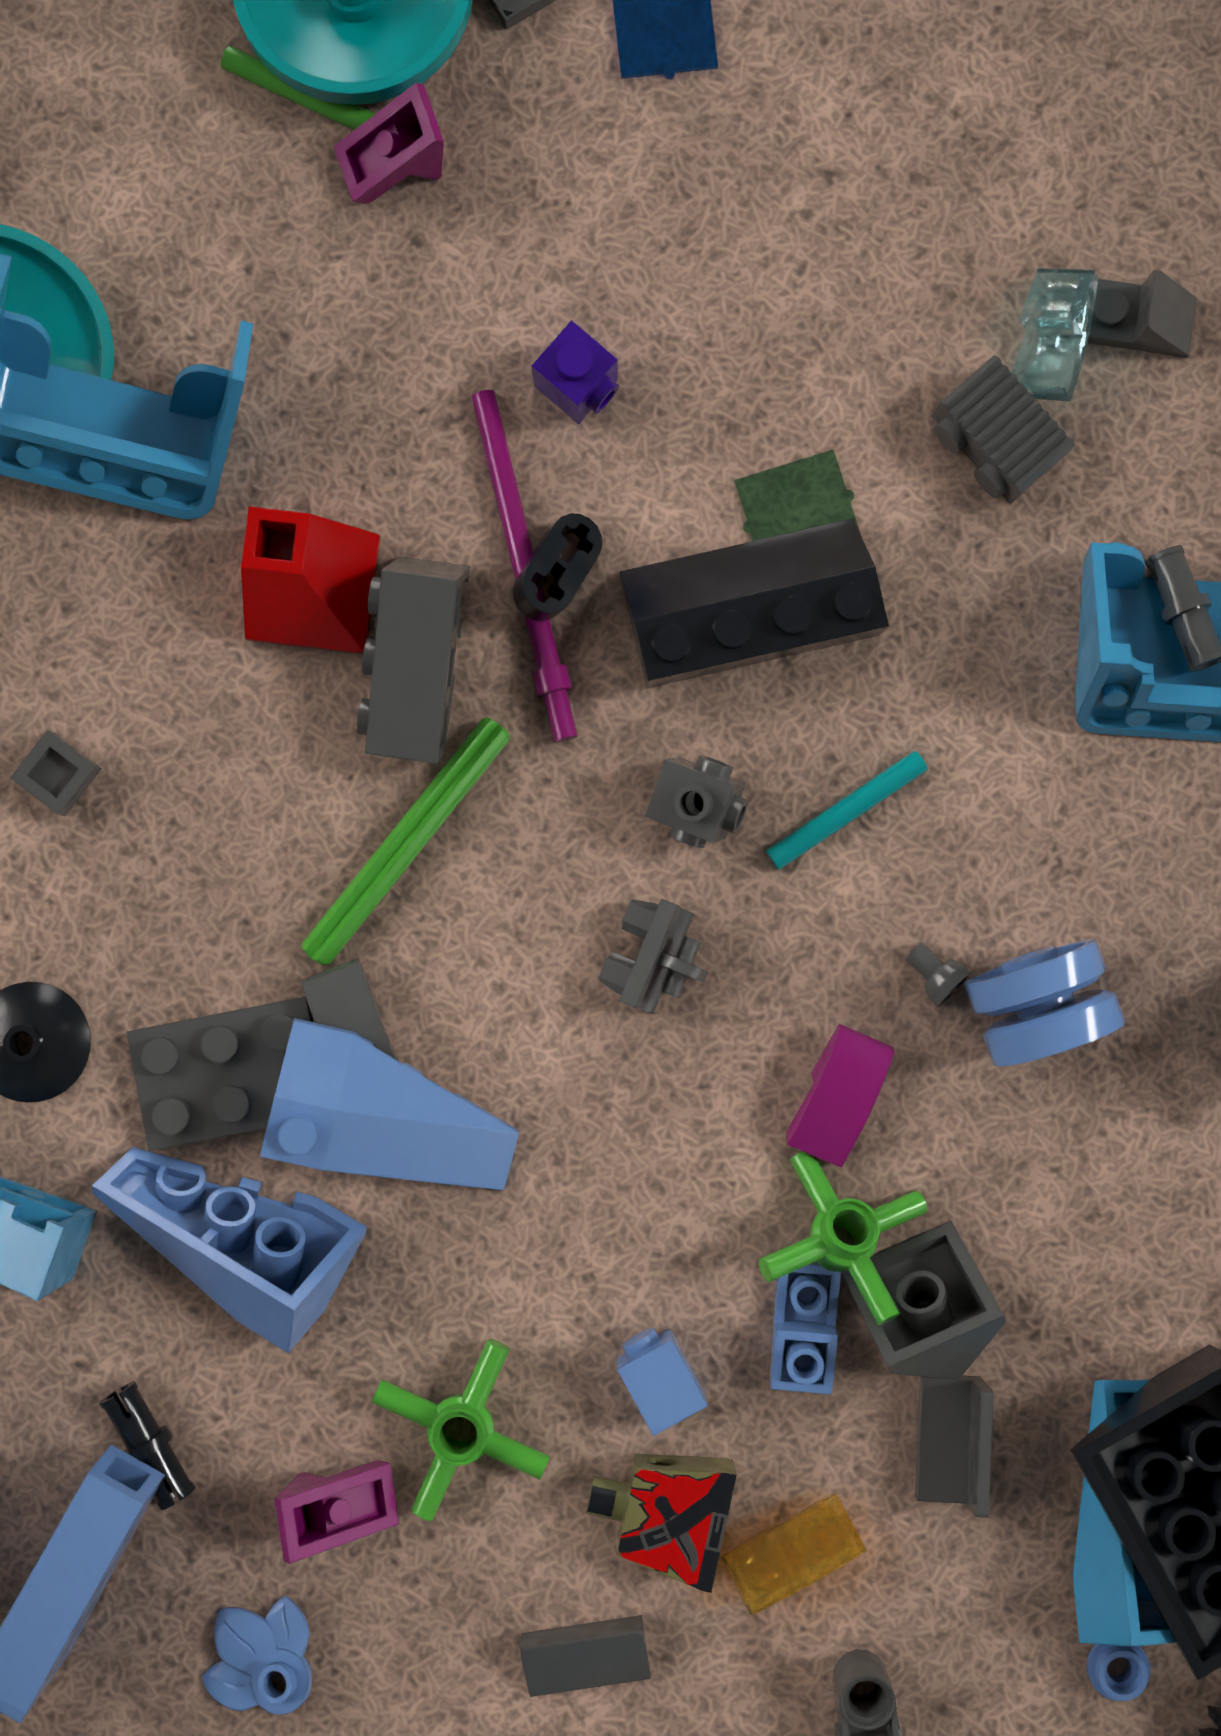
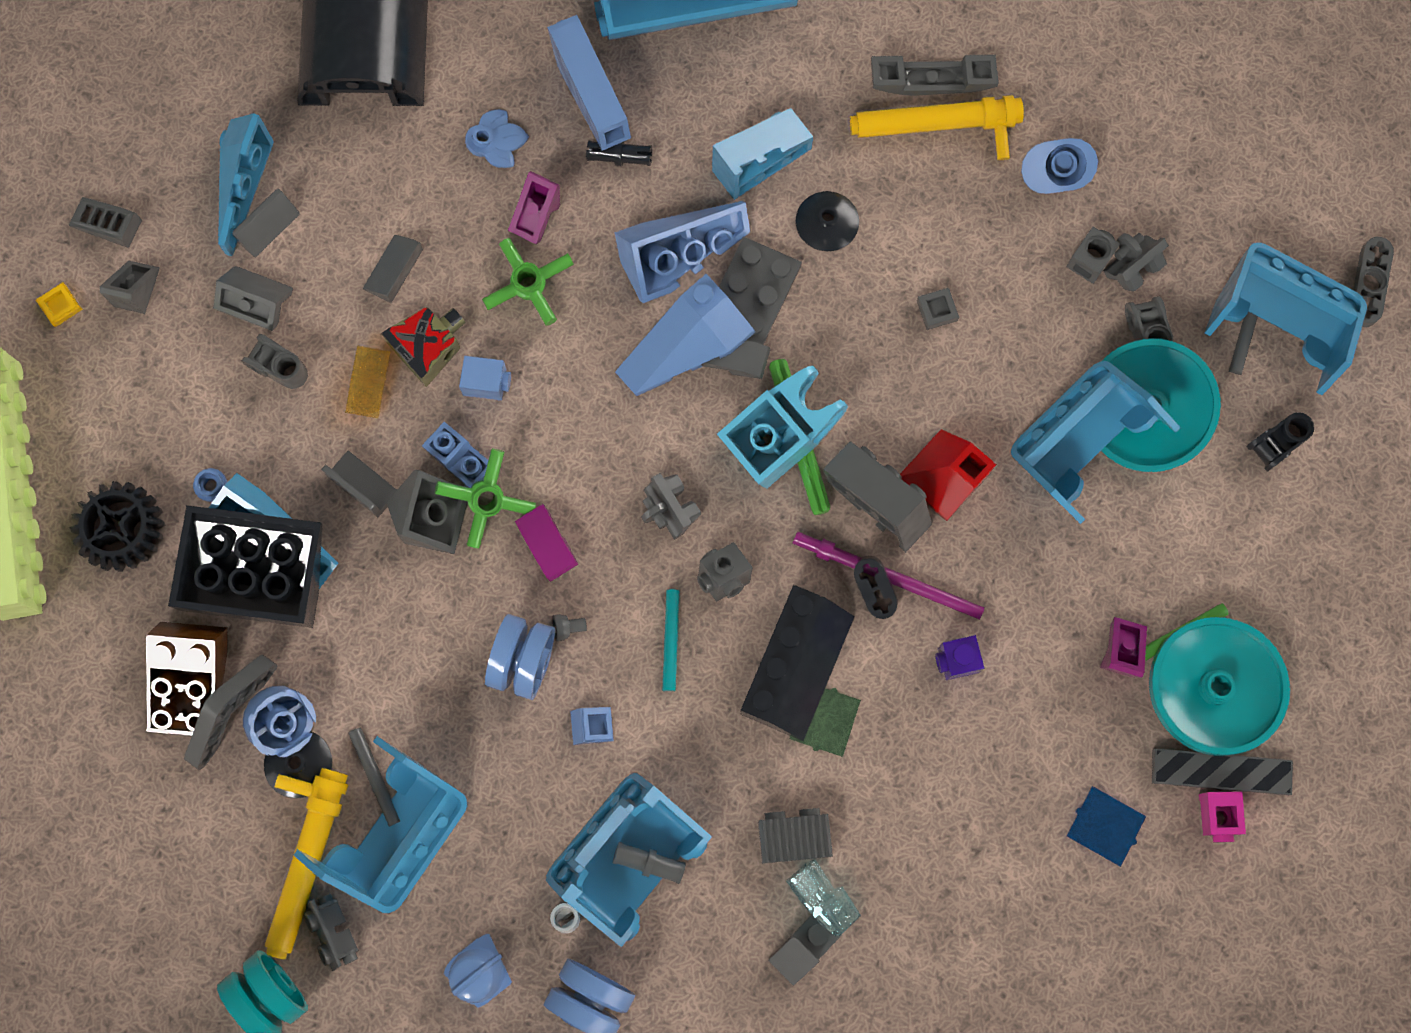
camera: 125 degrees right, 10 degrees down
(402, 866) = (786, 418): none -> medium azure brick
(1051, 833) = (591, 725): none -> medium blue slope

